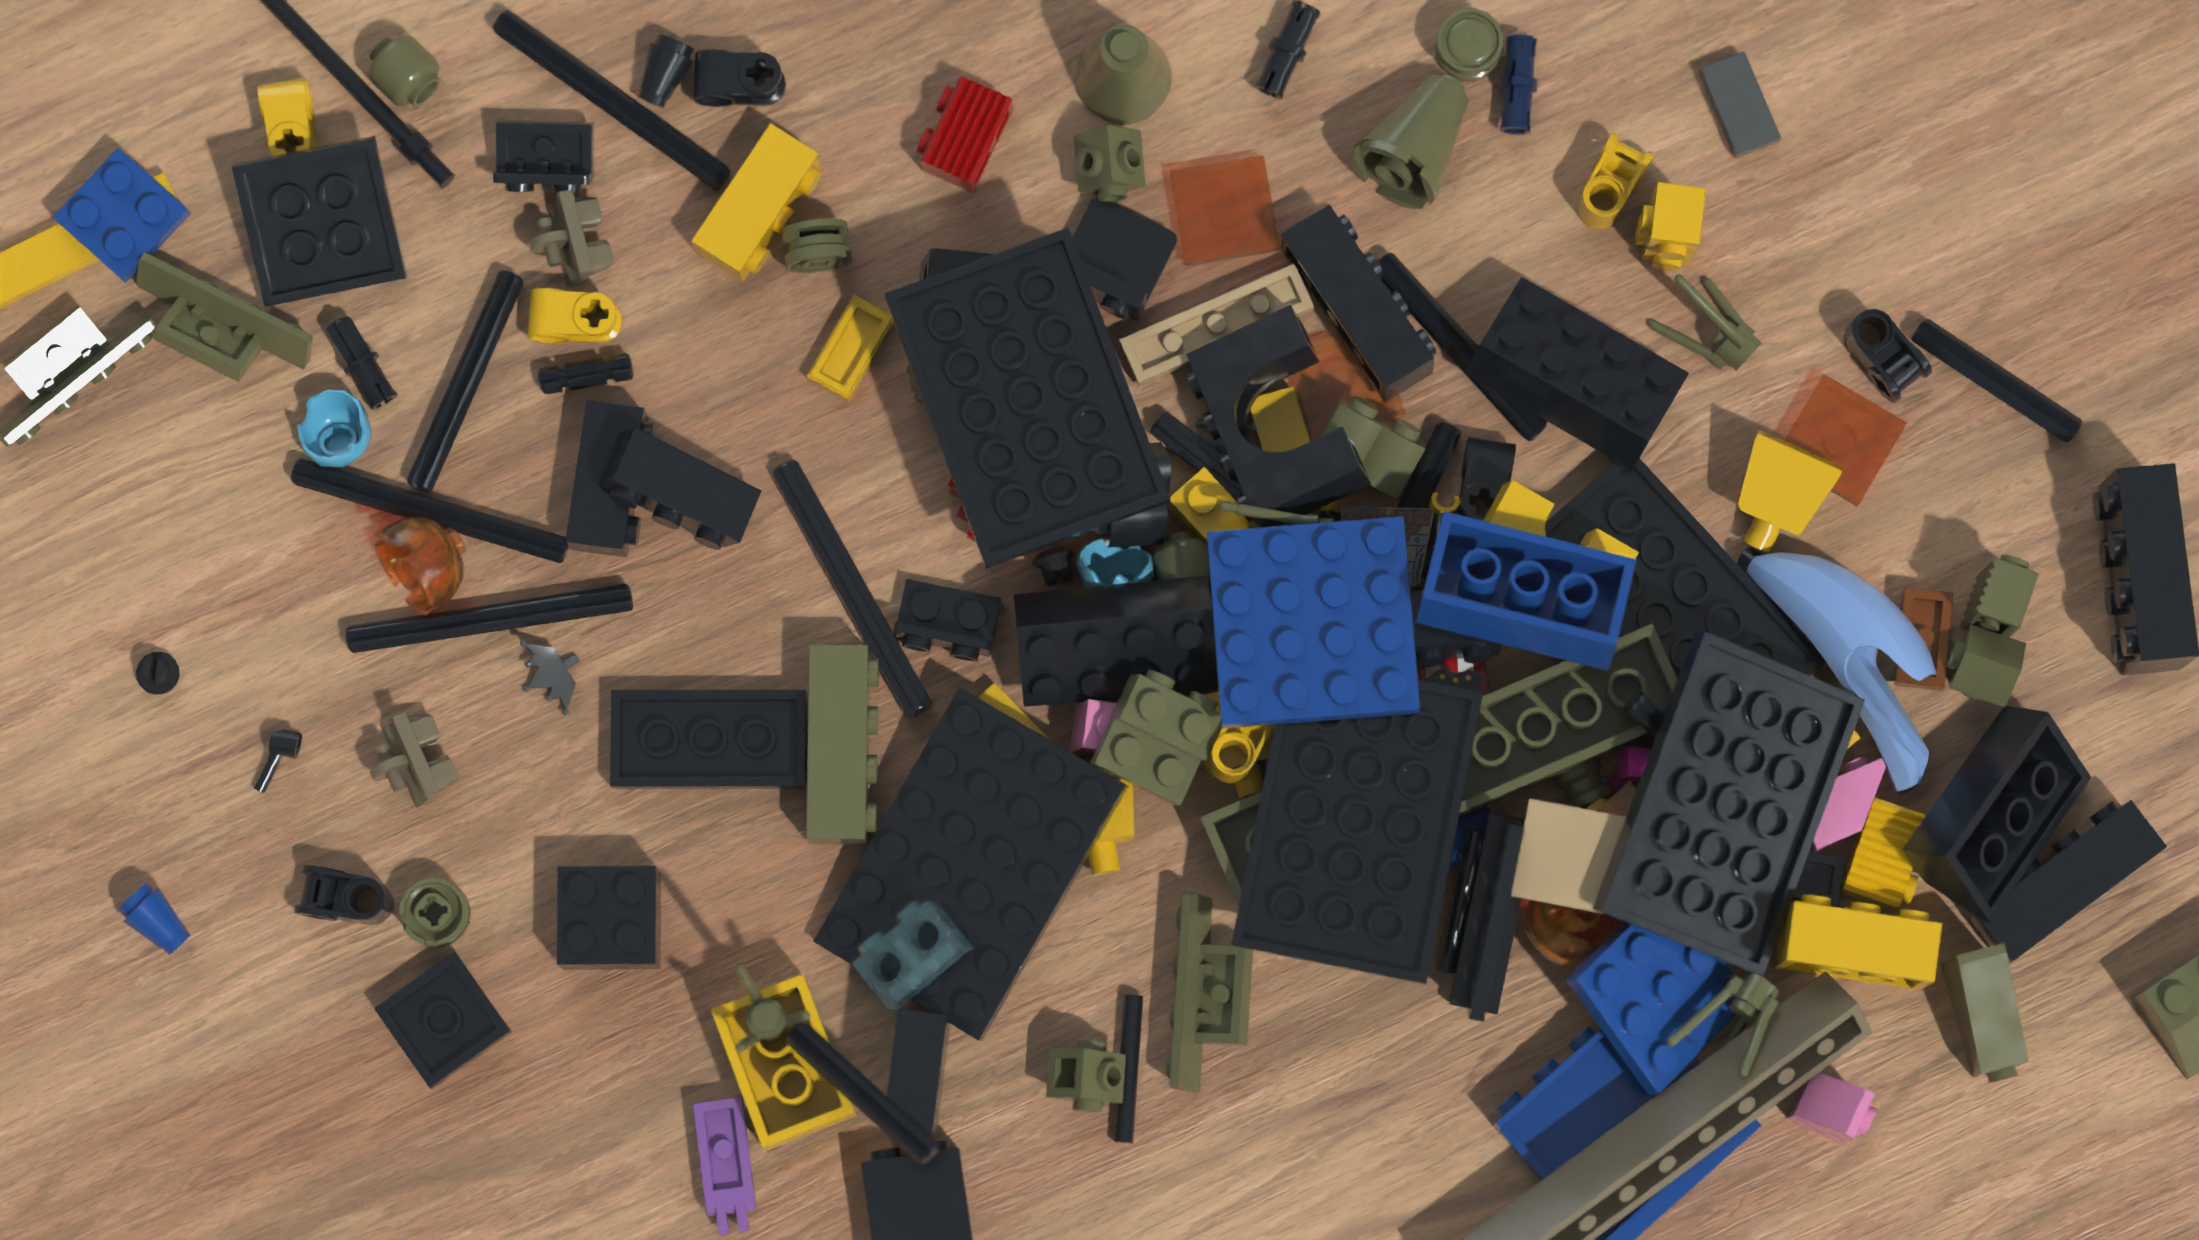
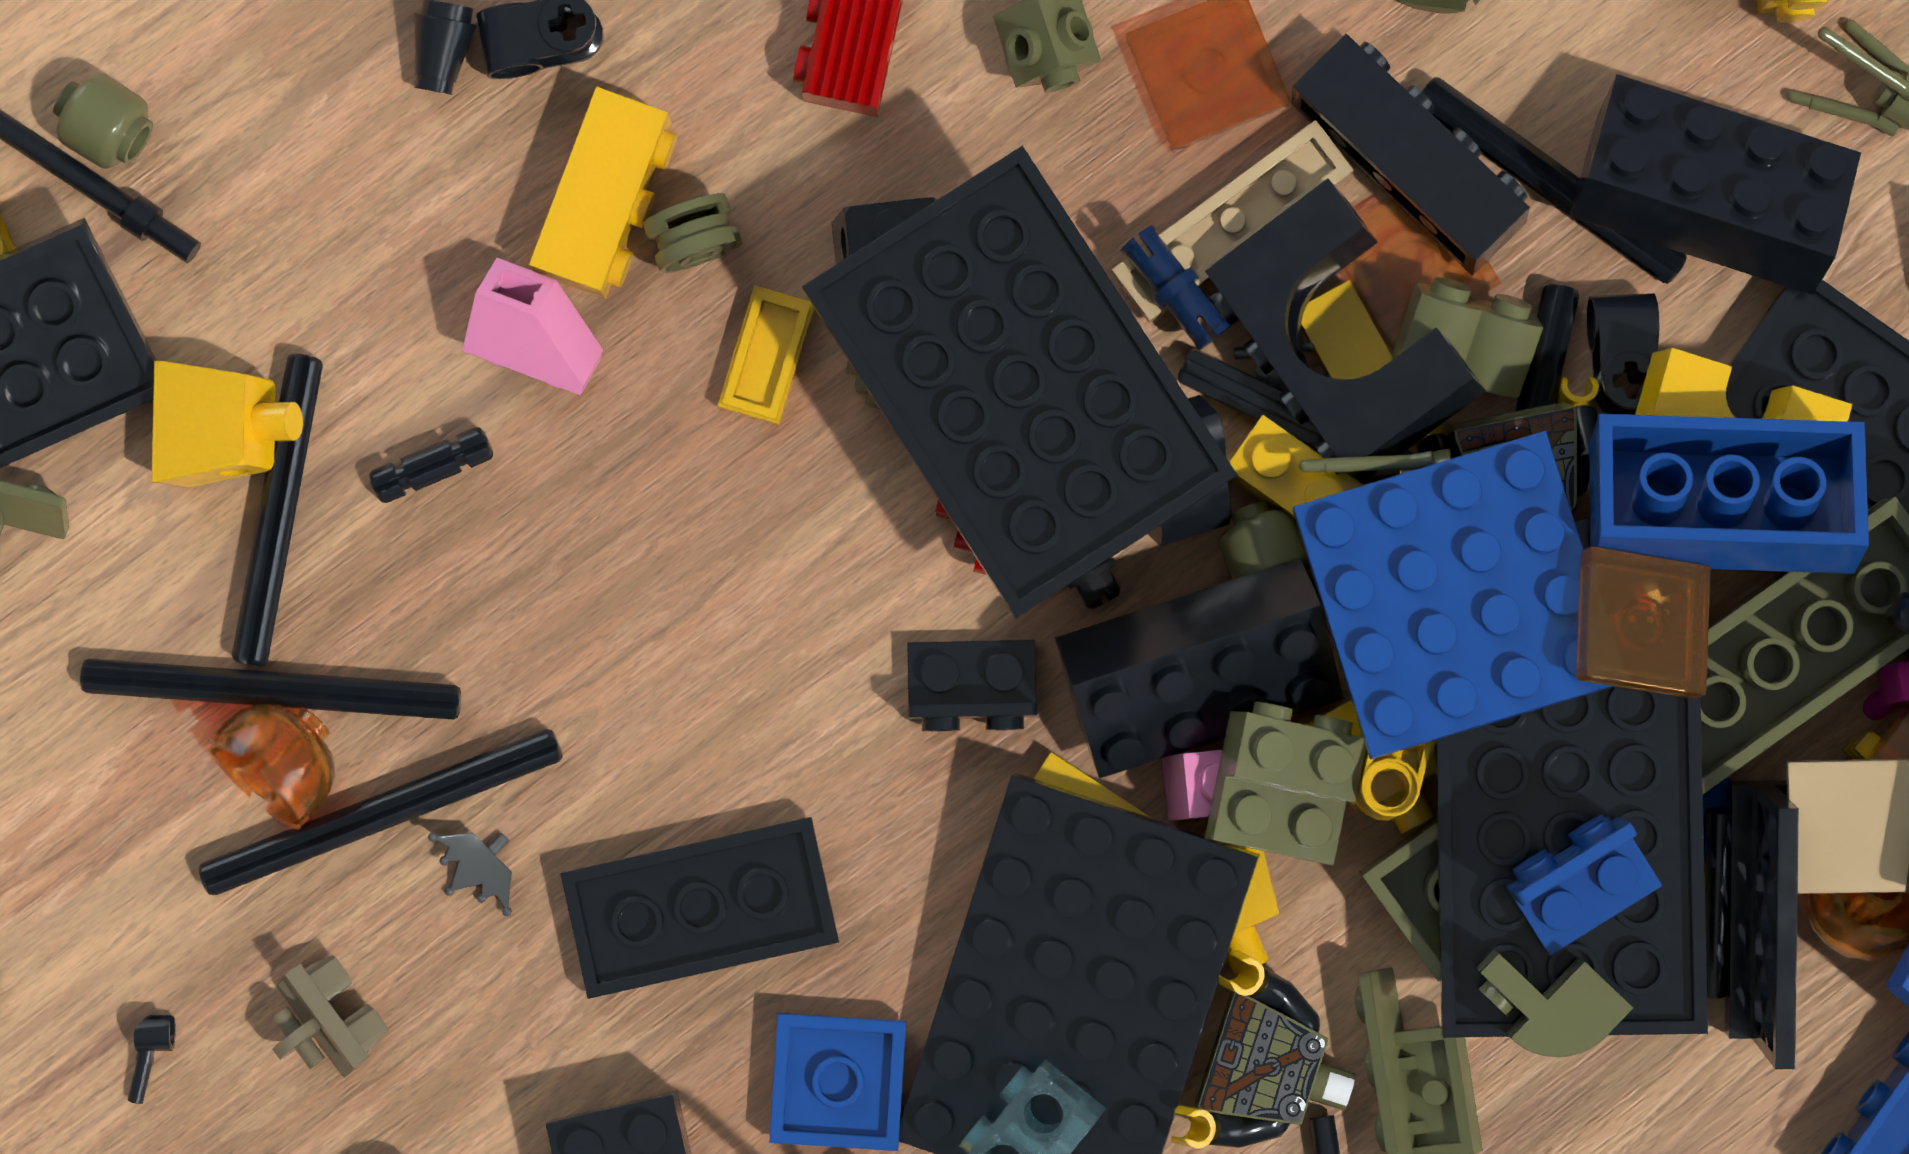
camera: 10 degrees left, 5 degrees up
(334, 428) = (122, 612): medium azure hair -> none
(360, 362) = (135, 515): black axle -> none
(434, 308) = (215, 425): none -> yellow torso
(544, 155) = (311, 191): black bracket -> none
(564, 238) = (362, 296): dark tan hips -> none
(564, 315) = (385, 396): yellow piece -> none
(594, 519) = (493, 597): black brick -> none
(611, 100) = (381, 98): black axle -> none
(678, 489) = (587, 595): black brick -> none
(682, 288) = (531, 328): none -> bright pink slope
(780, 889) = (837, 1081): none -> blue plate
(839, 744) = (871, 879): olive brick -> none
(852, 588) = (840, 669): black axle -> none
(1097, 944) = (1262, 1064): none -> torso
(1113, 565) = (1173, 569): medium azure hair -> none
(1122, 256) = (1090, 158): black bracket -> none
(1162, 361) = (1175, 287): none -> dark blue pin
(1318, 947) = (1562, 1020): none -> olive brick
(1356, 849) = (1583, 883): none -> blue bracket
(1442, 669) = (1643, 622): none -> clear orange tile
(1583, 784) = (1842, 723): olive wheel -> none

